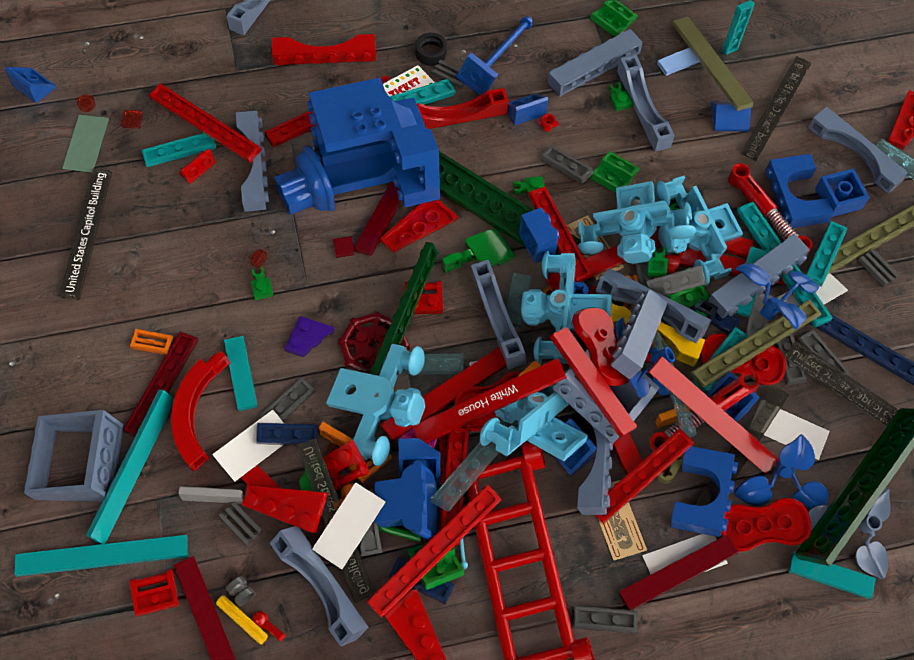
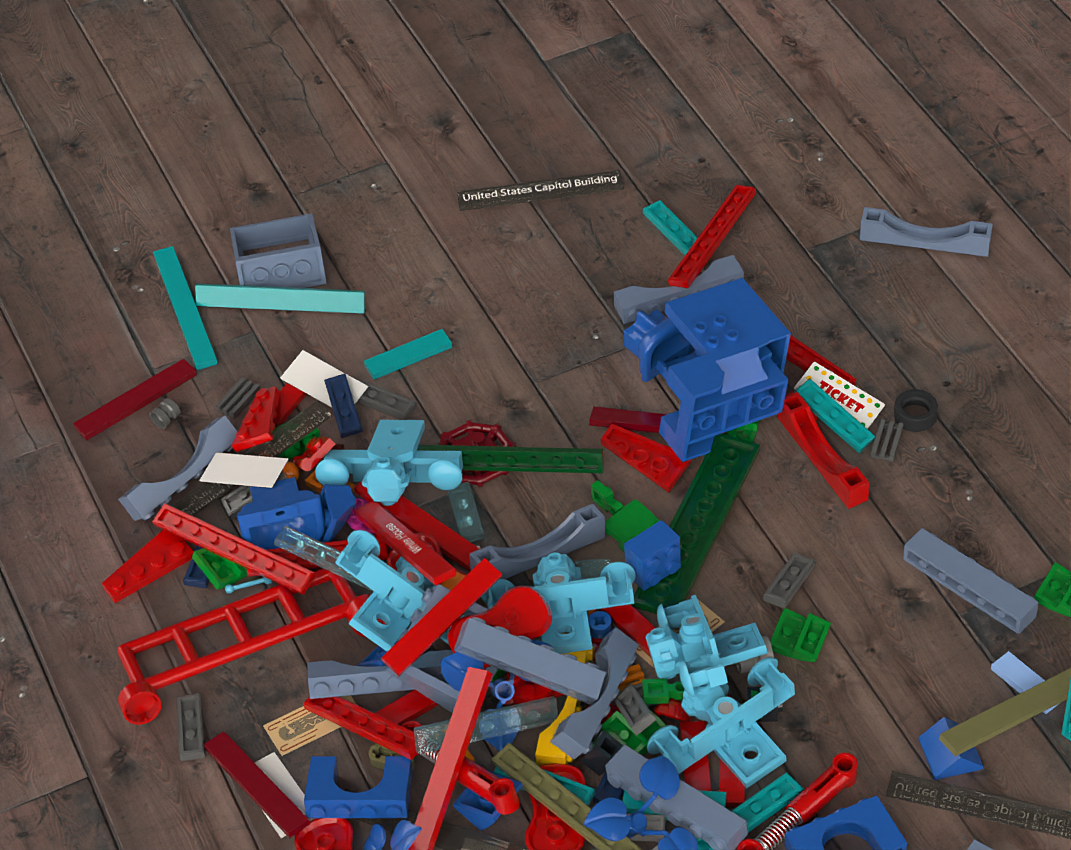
camera: 85 degrees right, 15 degrees down
(30, 82) = (712, 89): blue slope -> none
(85, 143) = (655, 158): sand green sticker -> none
(86, 103) = (706, 142): clear red tile -> none
(132, 119) = (699, 182): clear red tile -> none
(133, 345) = (425, 288): orange tile -> none
(156, 598) = (147, 355): red plate -> none
(163, 379) = (394, 298): dark red tile -> none
(185, 406) = (347, 319): red arch -> none
(198, 166) = (655, 249): red hinge -> none
(211, 495) = (261, 361): light grey tile -> none
(242, 619) = (136, 425): yellow axle -> none
(258, 258) = (550, 329): clear red tile -> none
(261, 286) = (520, 344): green plate -> none
(261, 619) = (140, 440): red bar -> none
(306, 336) = (468, 395): dark purple wing -> none
(333, 435) = (352, 439): orange tile -> none
(344, 247) = (593, 397): dark red tile -> none
(358, 49) = (883, 342): red arch -> none
(430, 302) = (543, 490): red plate -> none
(478, 74) = (883, 455): blue tile -> none
(527, 108) = (862, 523): blue slope -> none
(529, 184) = (744, 555): green plate -> none
(548, 122) = (851, 546): red plate -> none
(566, 243) = (674, 587): red tile -> none
(619, 98) = (925, 623): green plate -> none
(655, 127) = (884, 662): sand blue arch -> none

